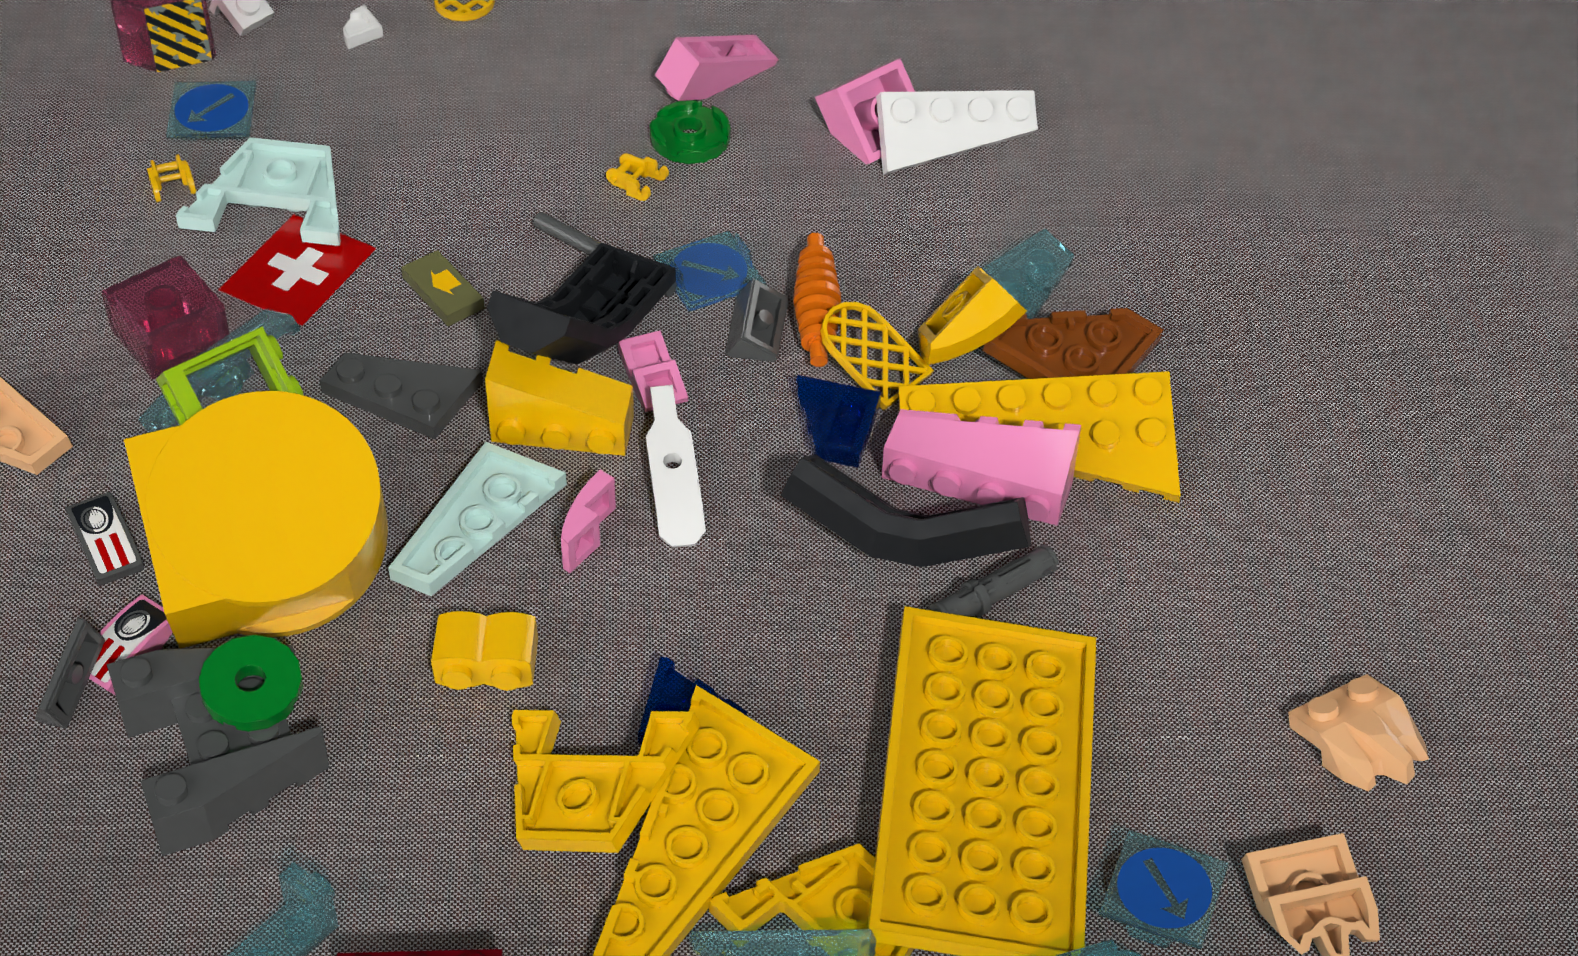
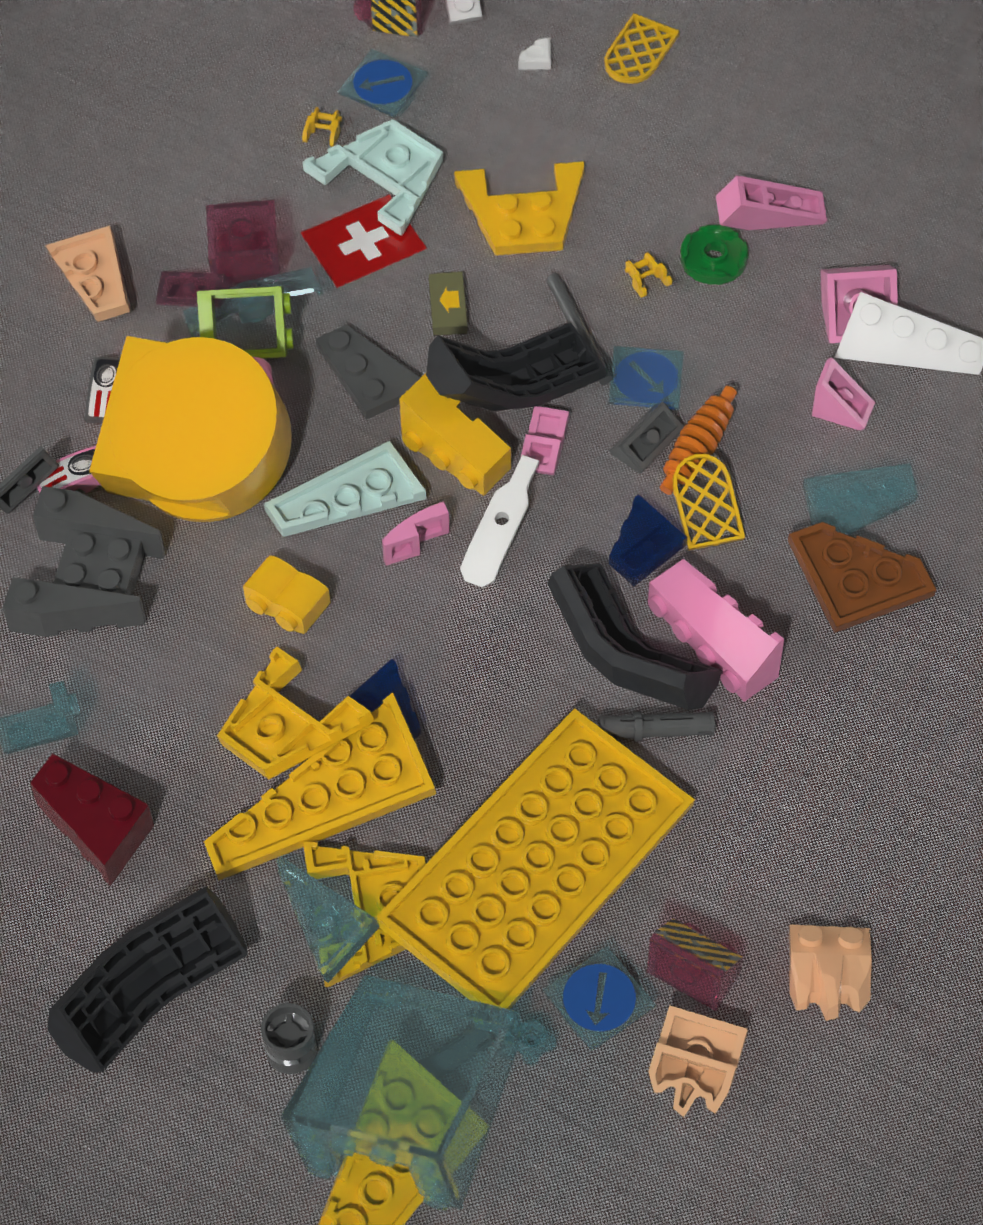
camera: 35 degrees right, 10 degrees up
(129, 390) = (182, 288): none -> clear pink slope
(244, 658) = (111, 526): green tile -> none
(460, 181) = (523, 220): none -> yellow wing
(924, 203) = (841, 398): none -> bright pink slope
(968, 318) = (790, 511): yellow slope -> none
(1122, 418) = (826, 642): yellow wing -> none
(1234, 800) = (693, 962): none -> clear pink slope

